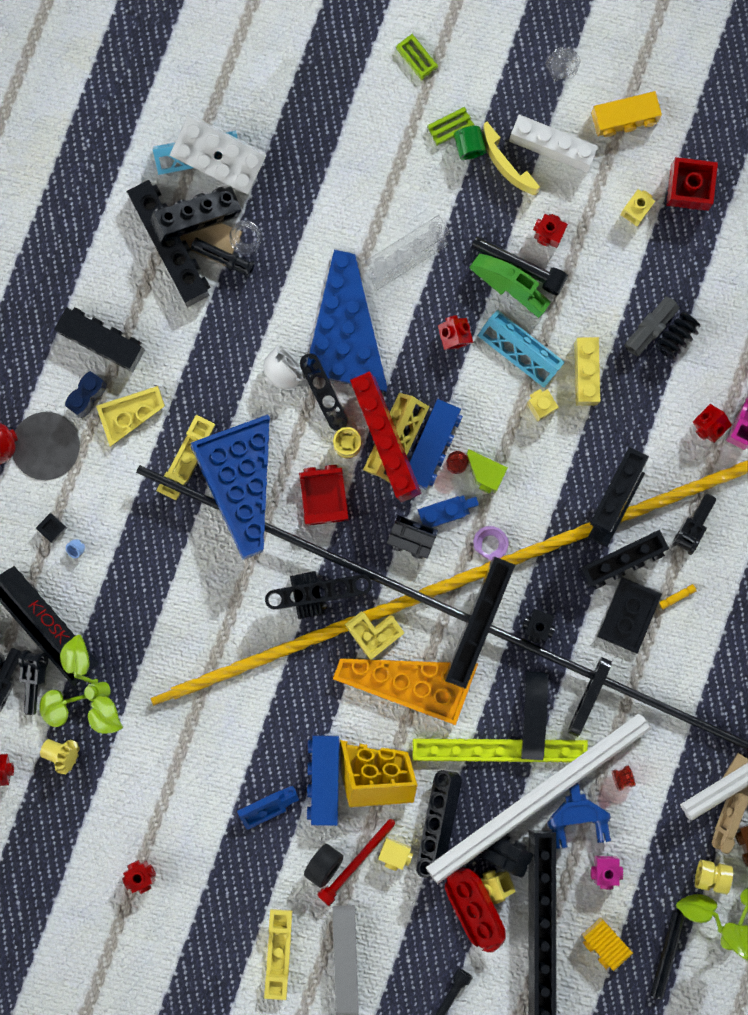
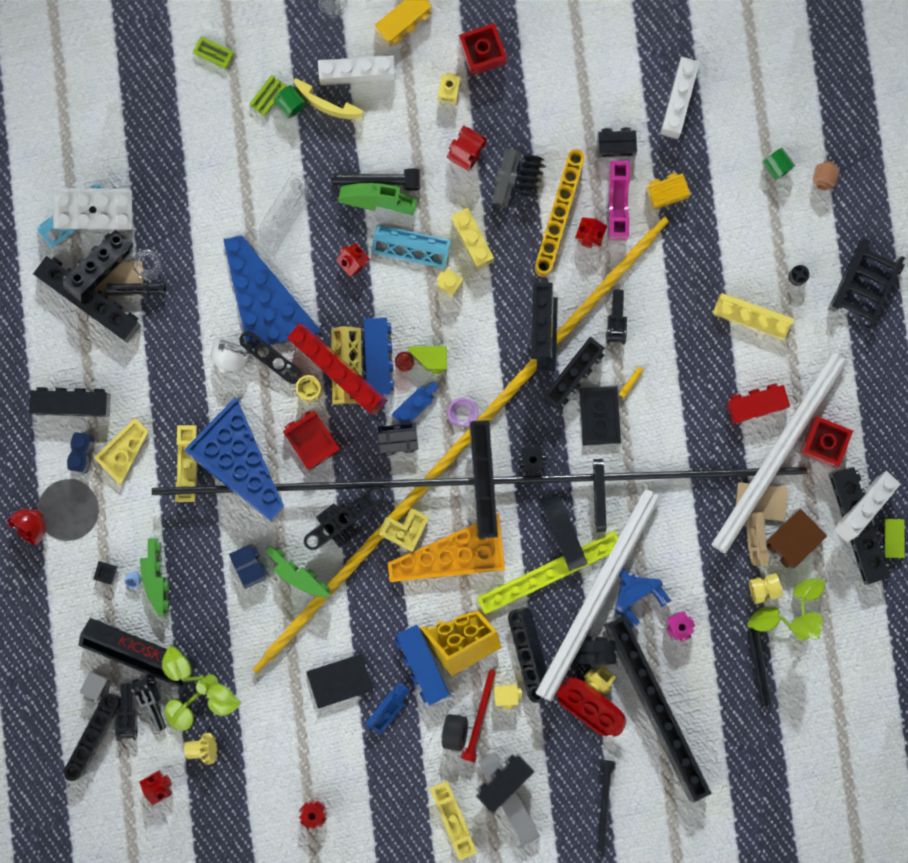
camera: 25 degrees left, 0 degrees up
(93, 566) = (155, 586): none -> bright green slope
(197, 592) = (248, 566): none -> dark blue brick
(232, 754) = (339, 681): none -> black tile
(245, 633) = (302, 579): none -> bright green slope
(349, 943) = (504, 782): none -> black brick
(549, 230) = (393, 140): red brick -> none
(606, 944) = (708, 683): yellow brick -> none
(623, 778) = (657, 546): clear red wheel -> none
(627, 276) = (467, 148): none -> red brick
(698, 383) = (563, 204): none -> yellow beam

